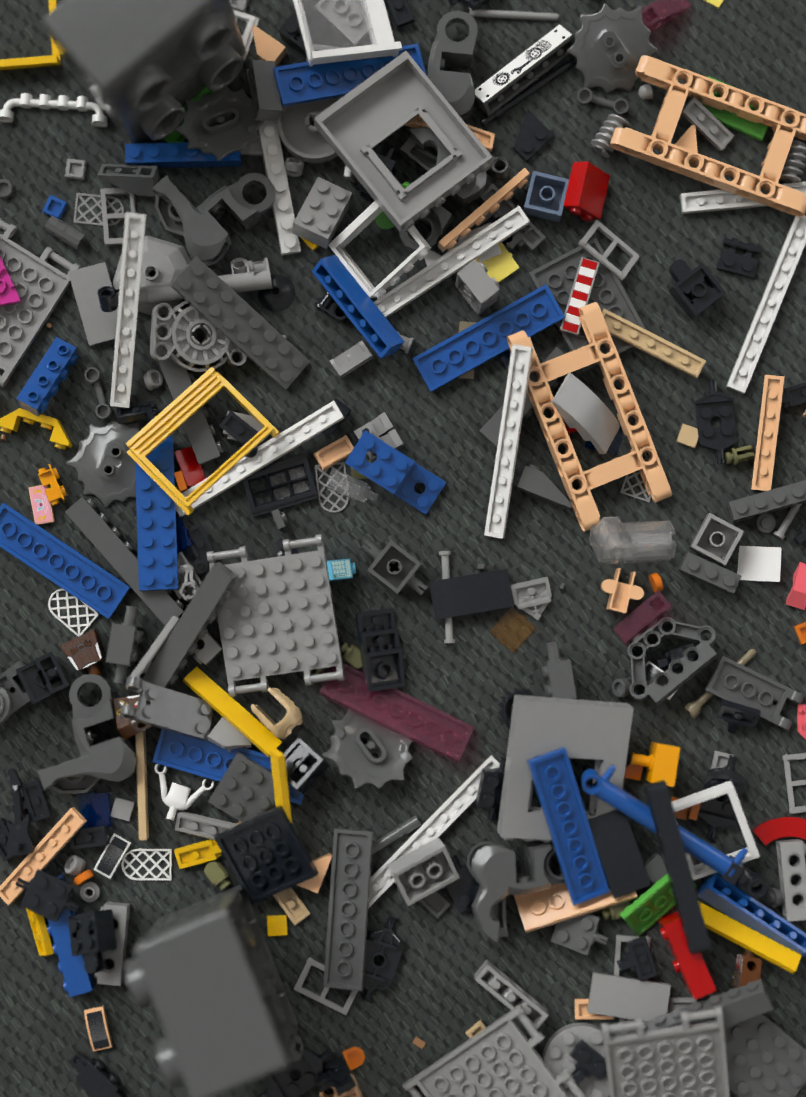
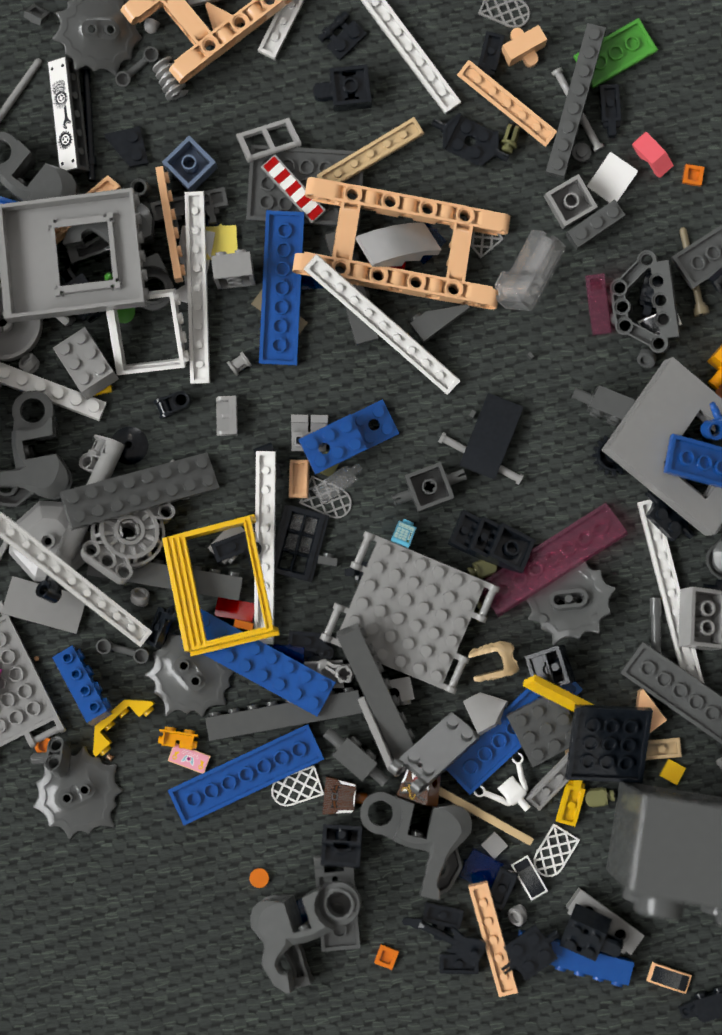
camera: 60 degrees left, 0 degrees up
(40, 933) = (558, 979): yellow tile -> none
(83, 877) = (533, 913): orange tile -> none
(94, 887) = (548, 909): light grey plate -> none
(232, 711) = (468, 700): yellow tile -> none
(358, 306) = (186, 381): blue brick -> none
(512, 629) = (541, 420): clear orange piece -> none
(532, 596) = (523, 385): light grey slope -> none
(586, 191) = (207, 127): red brick -> none
(621, 592) = (567, 309): light nougat piece -> none
(656, 582) = (575, 274): orange tile -> none
(688, 436) = (467, 171): tan tile -> none

